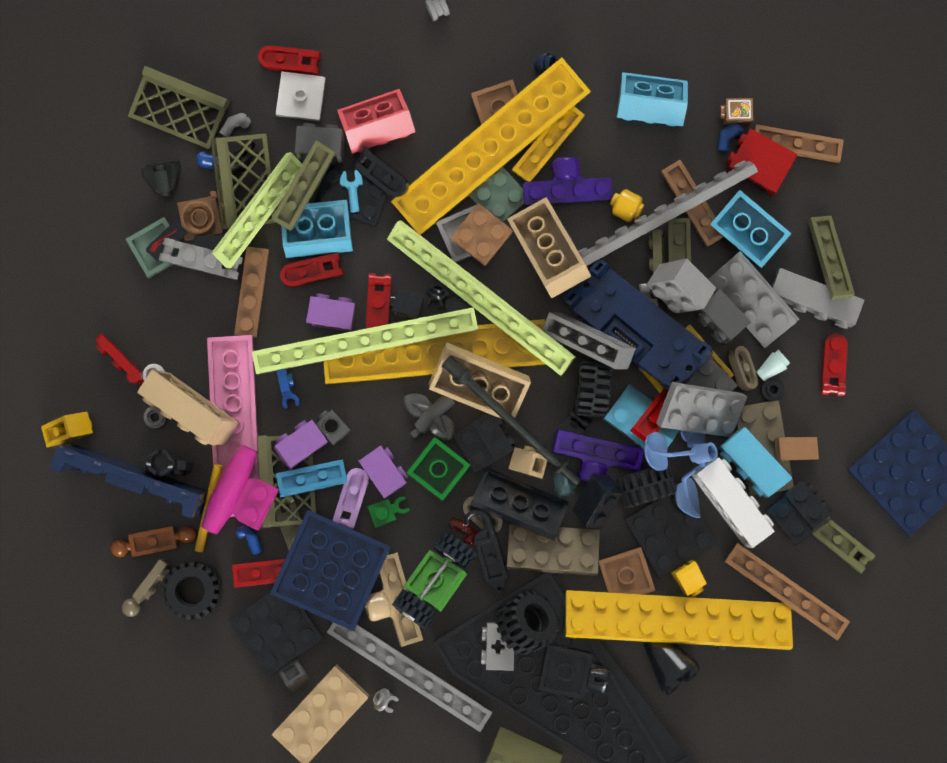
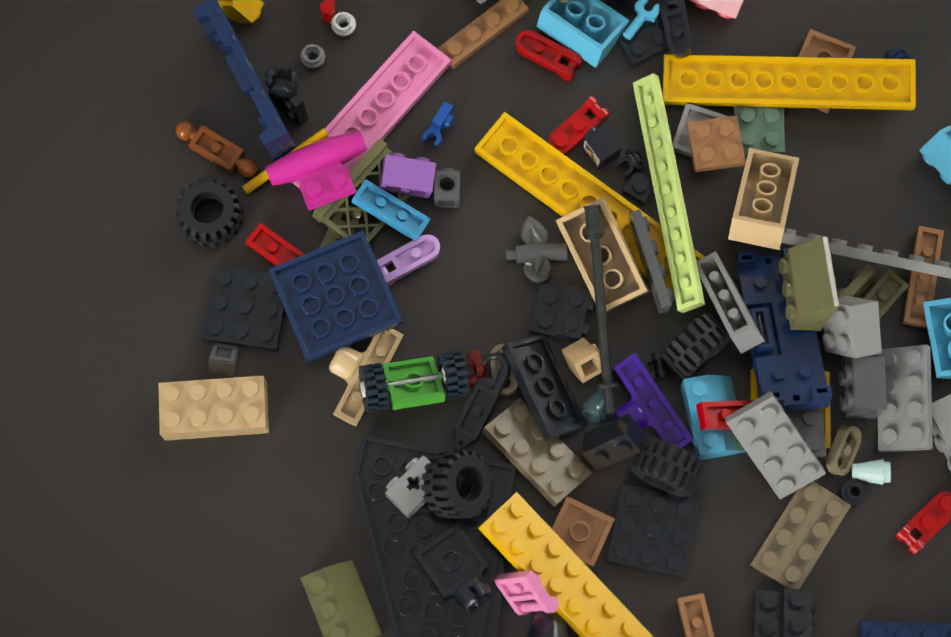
camera: 45 degrees right, 10 degrees down
(145, 591) = (174, 179): dark tan plate -> none
(188, 408) = (344, 65): tan brick -> none
(252, 538) = (297, 215): blue arm -> none
(331, 313) = (531, 99): medium lavender brick -> none
(364, 340) = (540, 141): yellowish green plate -> none
(382, 699) = (274, 443): light grey plate -> none
(383, 471) = (454, 260): medium lavender brick -> none
(384, 511) = (424, 294): green plate -> none
(413, 675) = (320, 447): light grey plate -> none
(438, 469) = (502, 297): green brick -> none
(505, 352) = (654, 271): none -> dark grey plate
(547, 145) = (838, 123): yellow plate -> none
(567, 185) = (826, 170): dark purple plate -> none
(627, 205) = (862, 227): yellow head -> none
(630, 284) = (809, 285): none -> olive slope
(630, 648) = (522, 587): none -> bright pink plate
(689, 578) = (633, 582): yellow slope -> none
(700, 453) = (745, 476): medium blue plant -> none
(733, 503) = (731, 551): white brick -> none
(754, 463) = (781, 532): medium azure slope -> none
(796, 448) = (830, 560): medium nougat tile -> none

